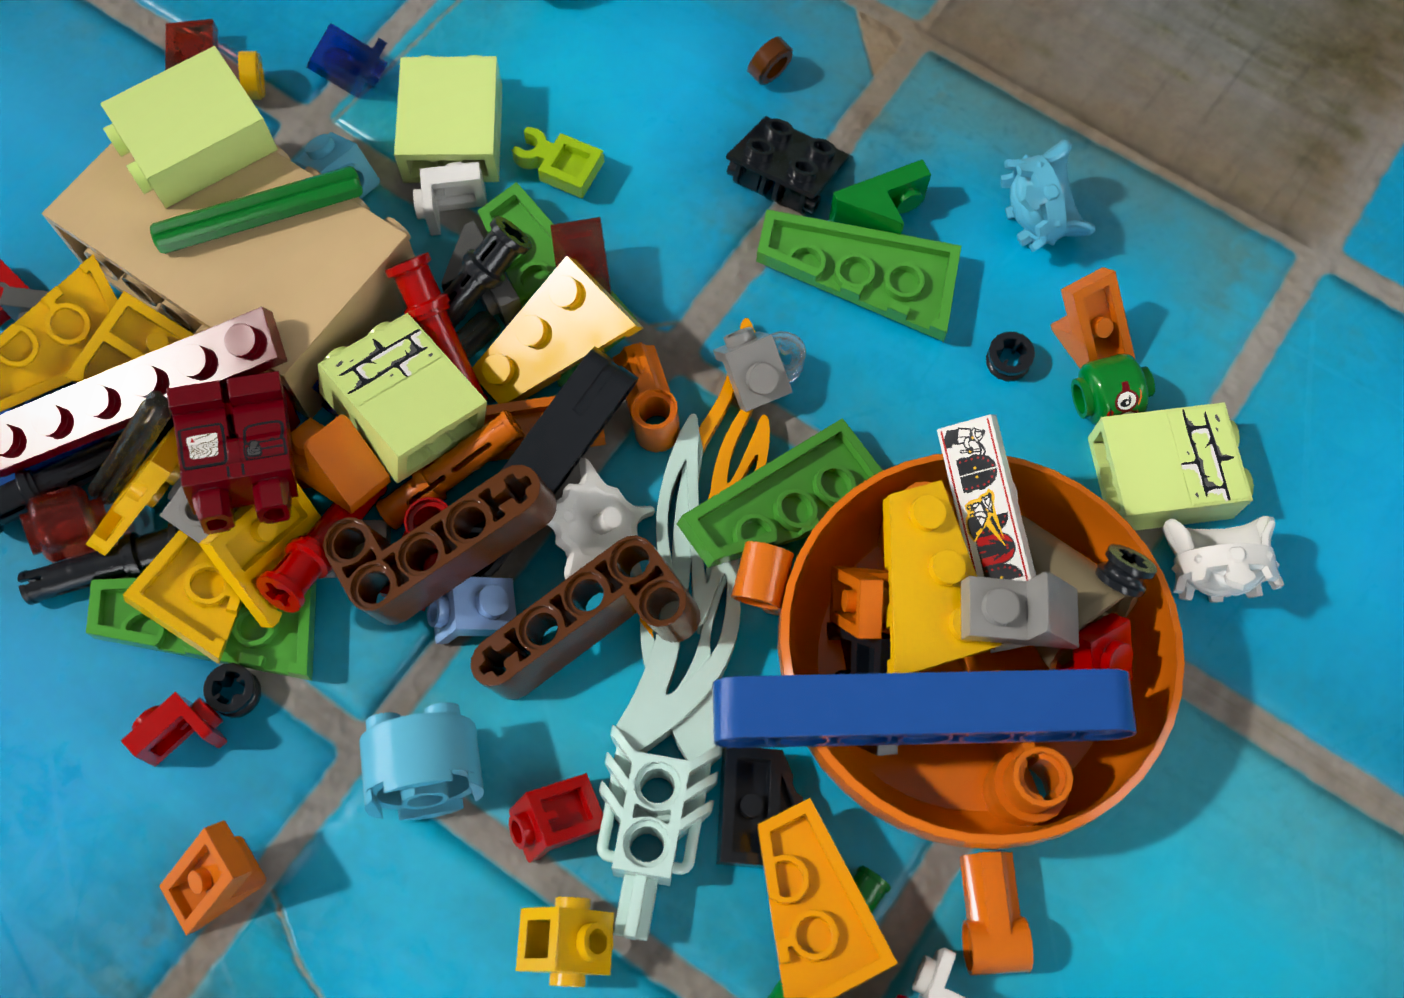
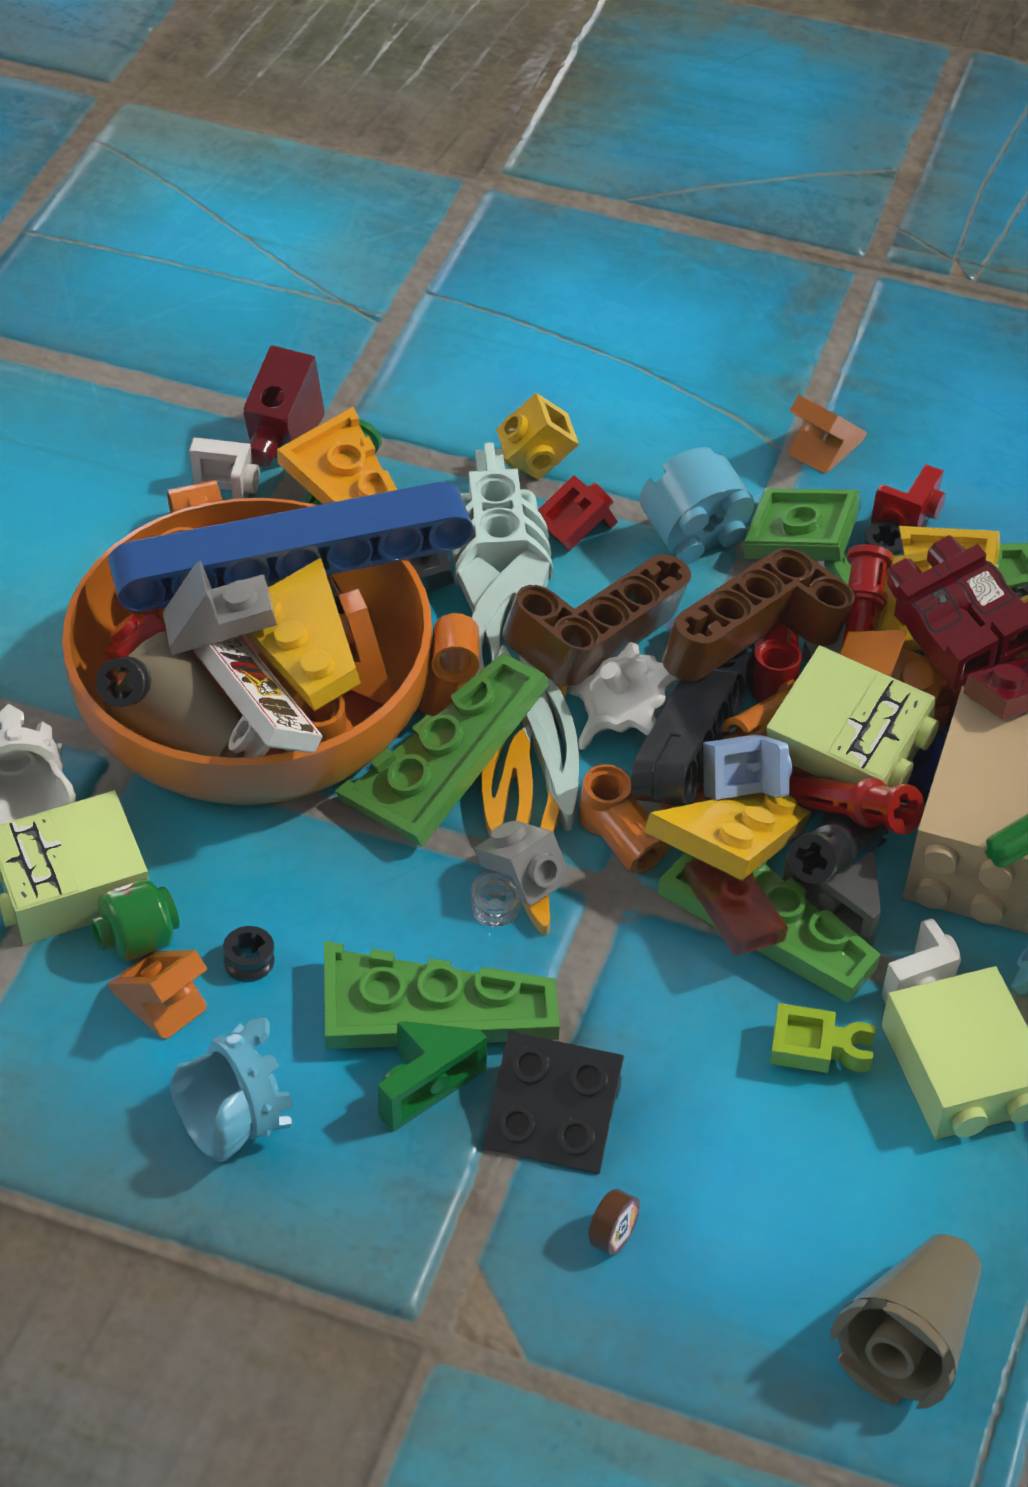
camera: 165 degrees right, 20 degrees down
(308, 727) = (803, 520): none -> bright green tile
(530, 391) = (746, 767): none -> light blue bracket

